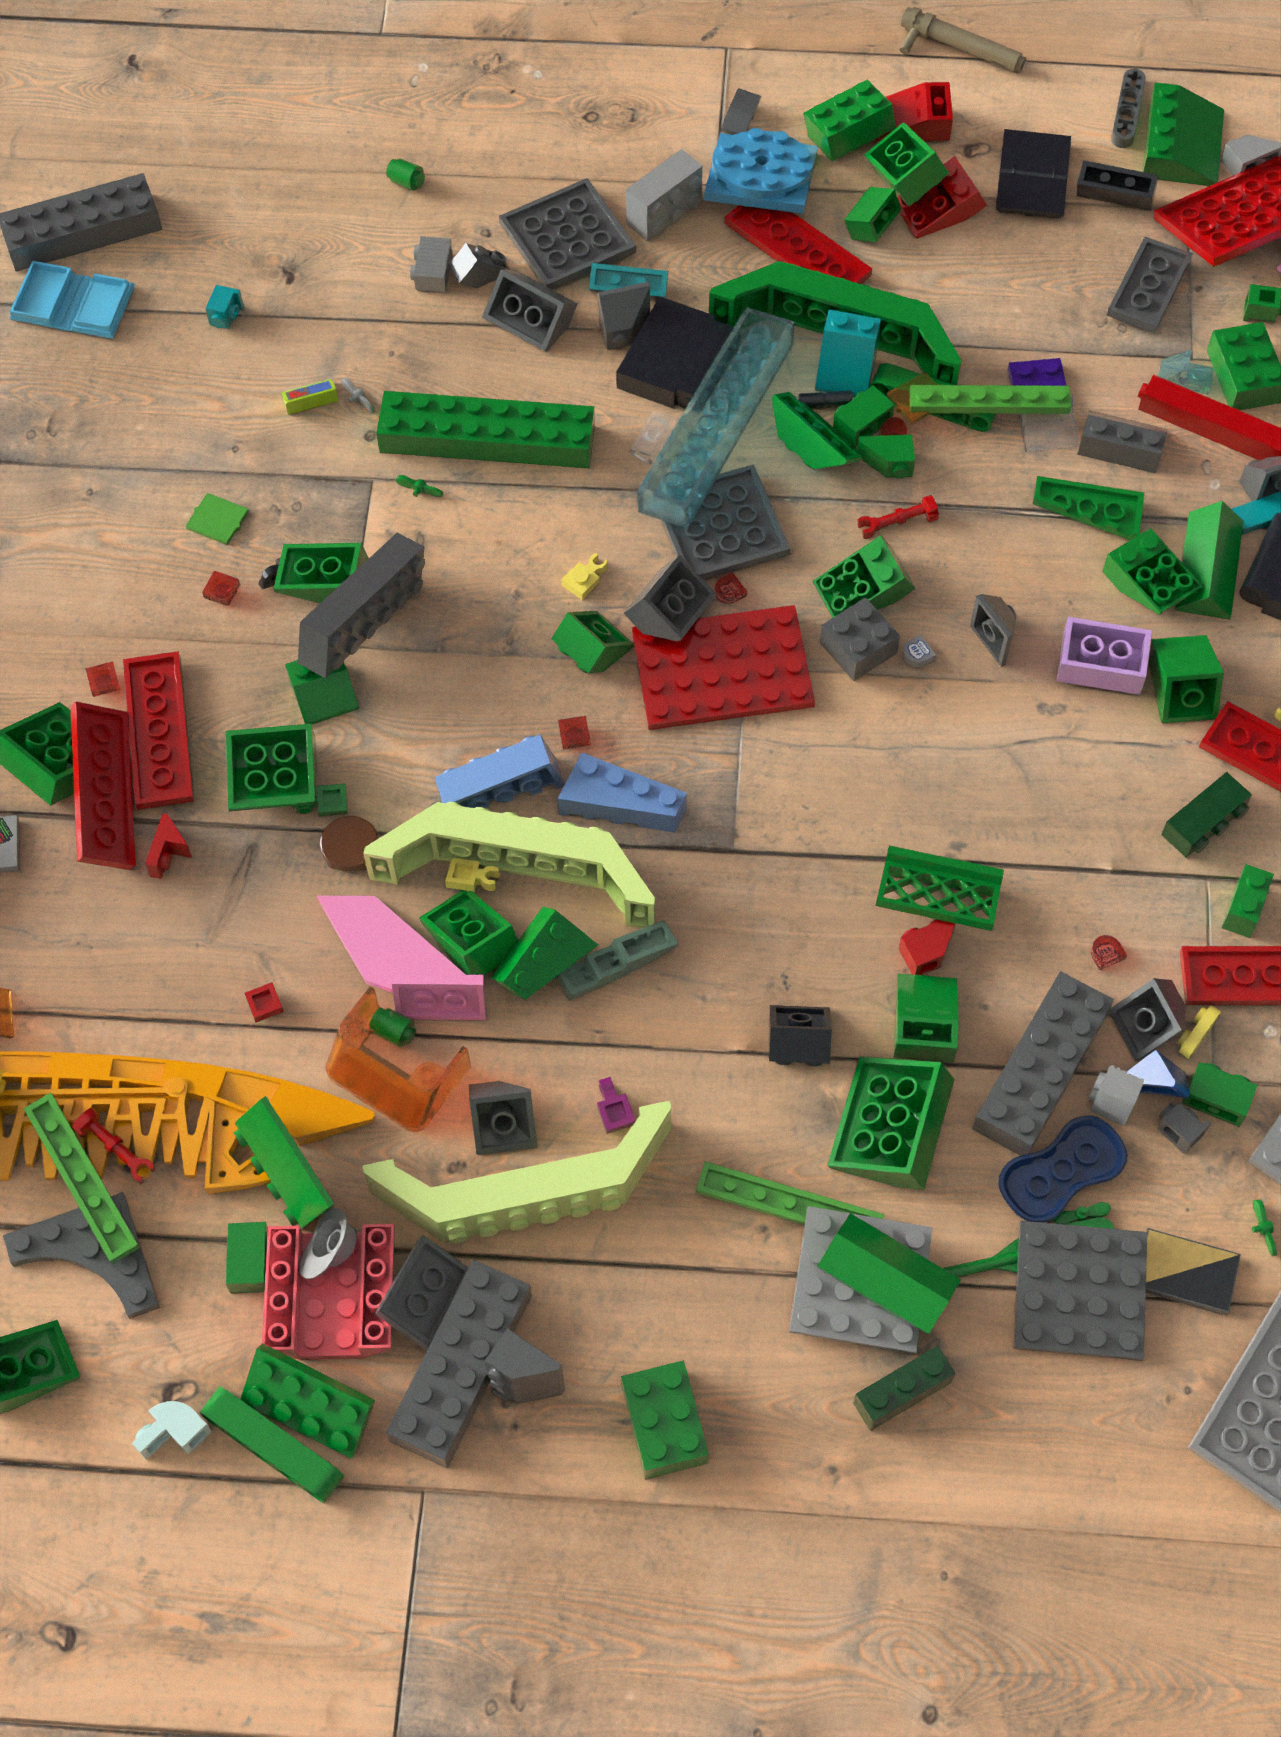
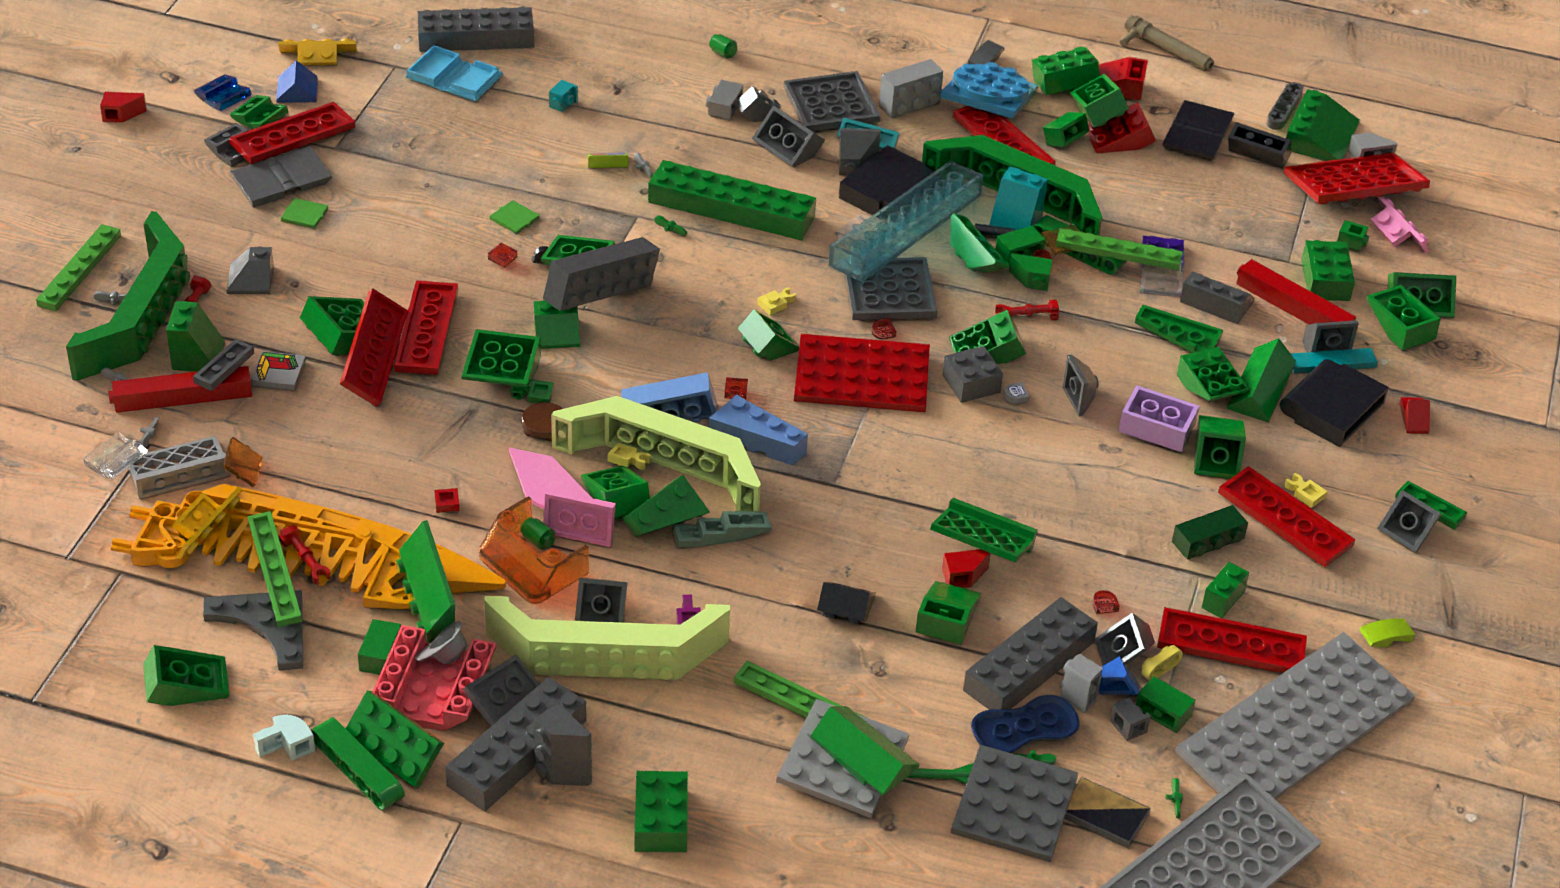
camera: 10 degrees right, 20 degrees down
(103, 679) = (397, 289): clear red plate -> none
(165, 843) = (406, 393): red slope -> none
(671, 601) = (834, 319): dark grey slope -> none
(892, 1121) = (902, 668): green slope -> none
(904, 1388) = (854, 832): dark green brick -> none
(1149, 284) = (1267, 210): dark grey plate -> none
(1186, 374) = (1276, 263): clear light blue slope -> none

